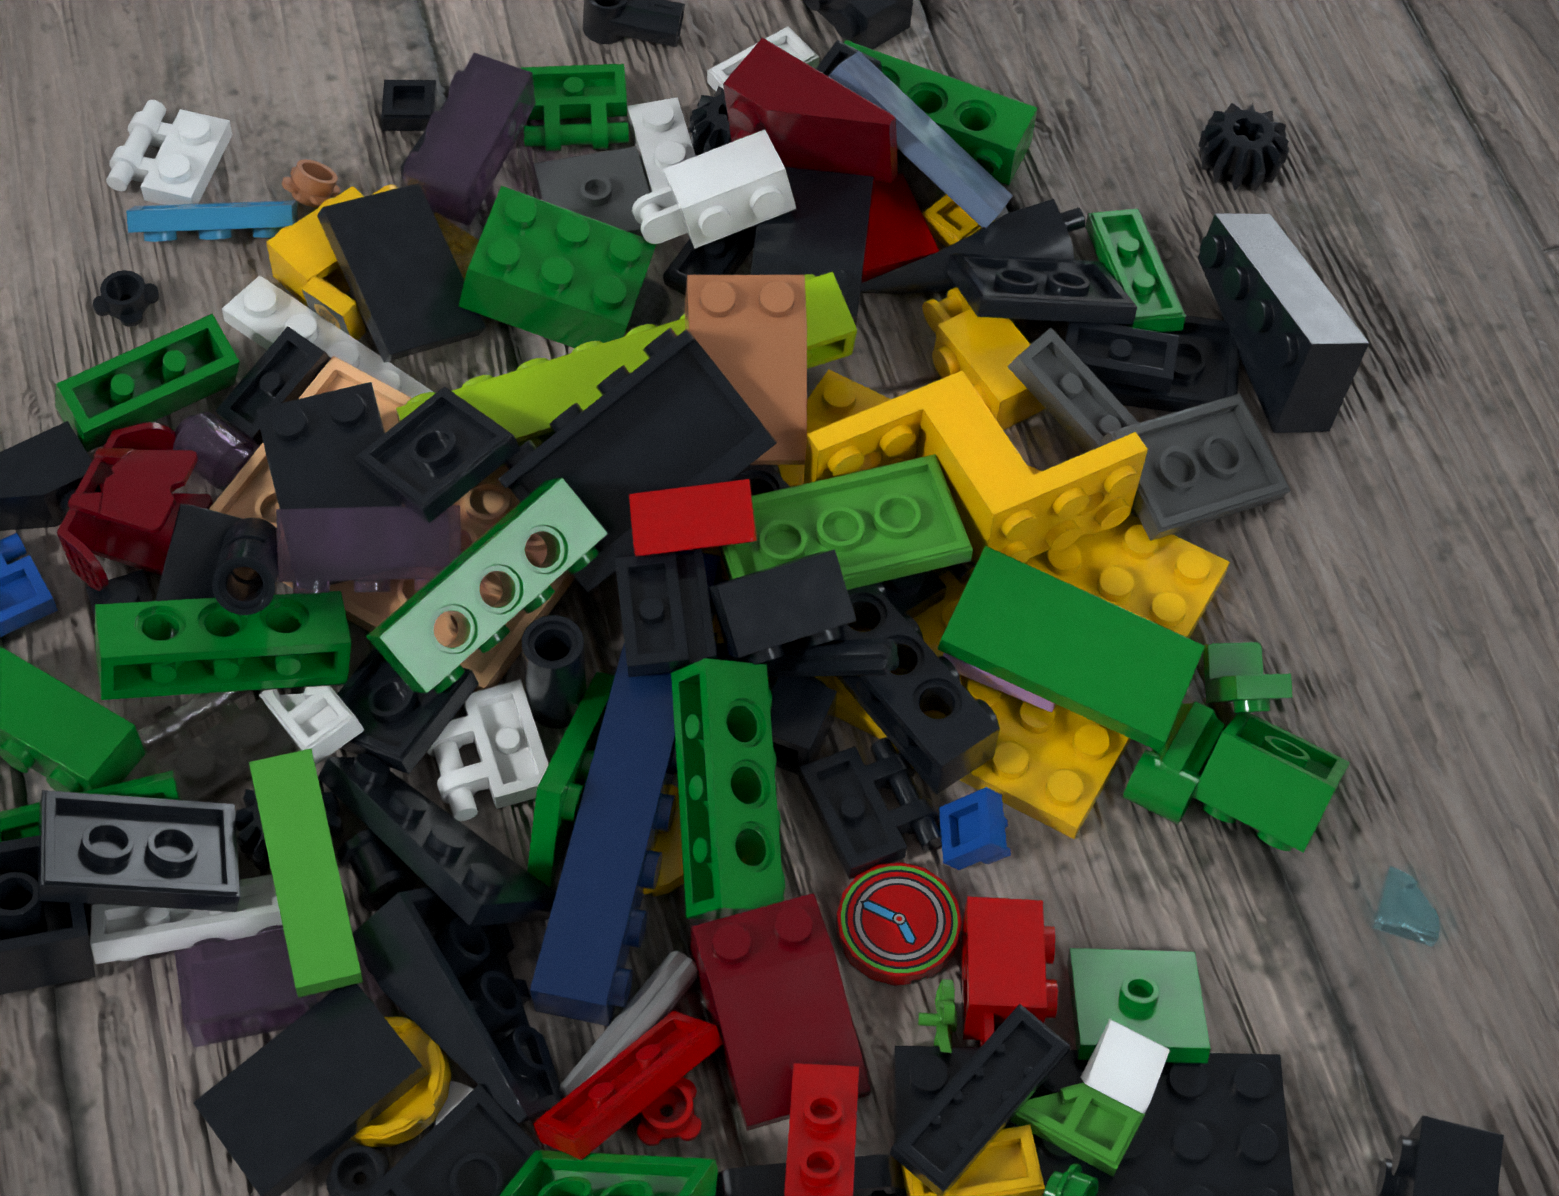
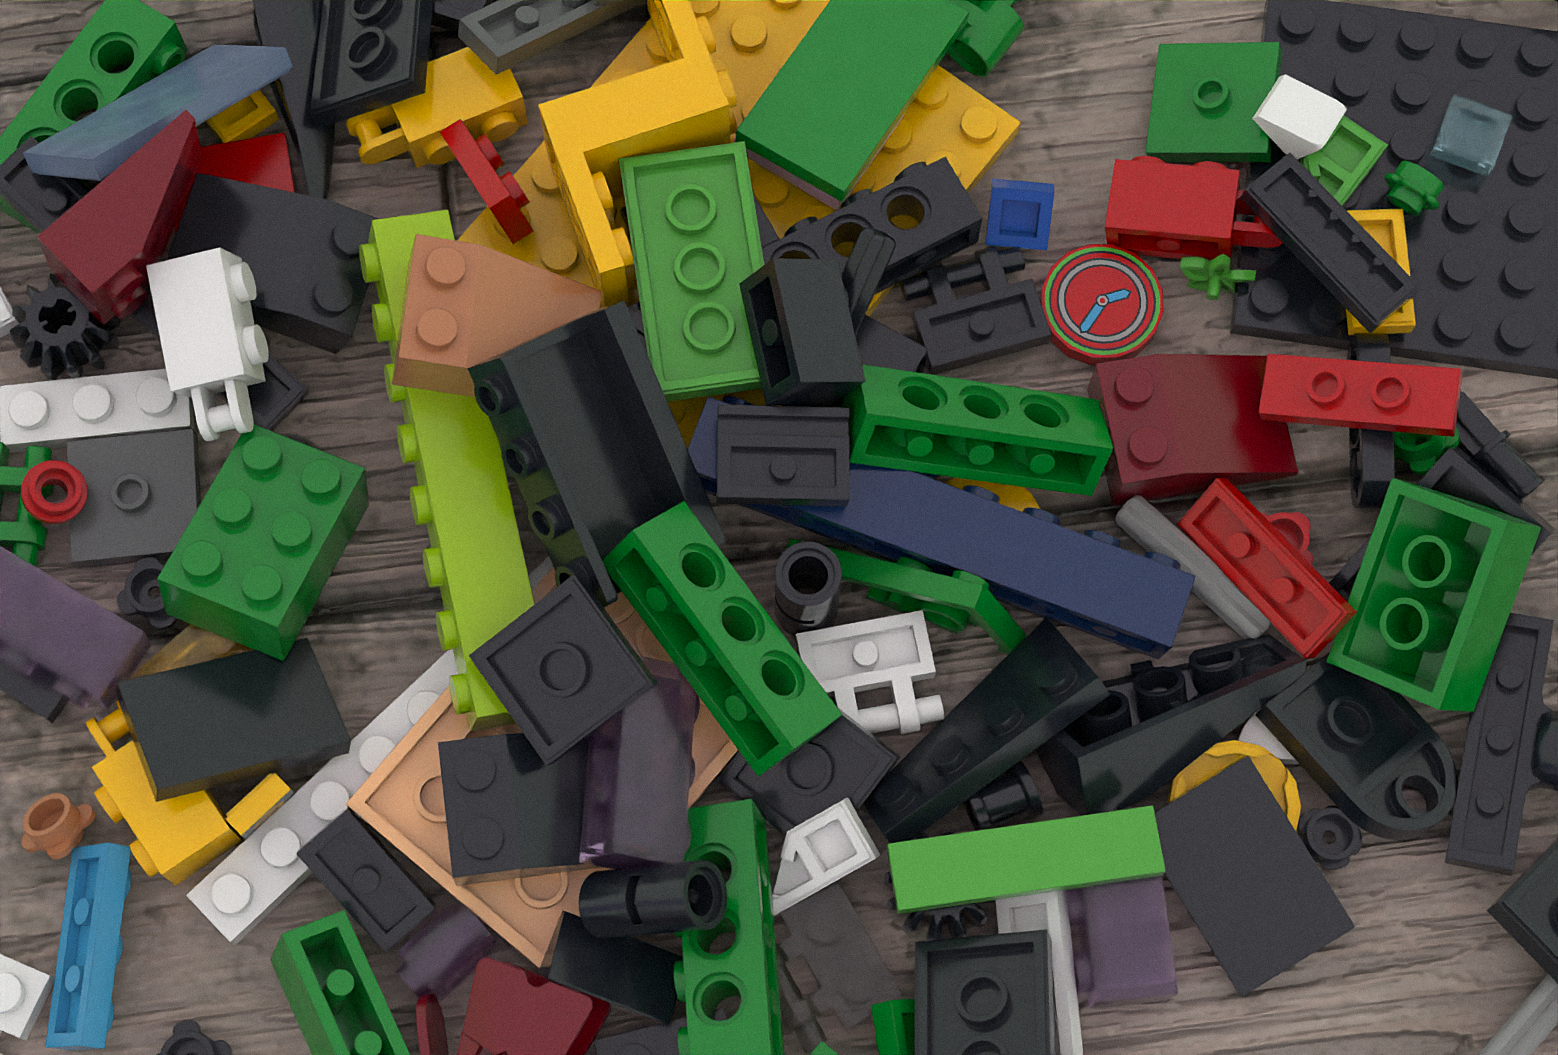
camera: 80 degrees left, 15 degrees up
(589, 122) = (54, 473): none -> red plate
(692, 517) = (691, 406): red slope -> none
(910, 373) = (500, 193): none -> red plate

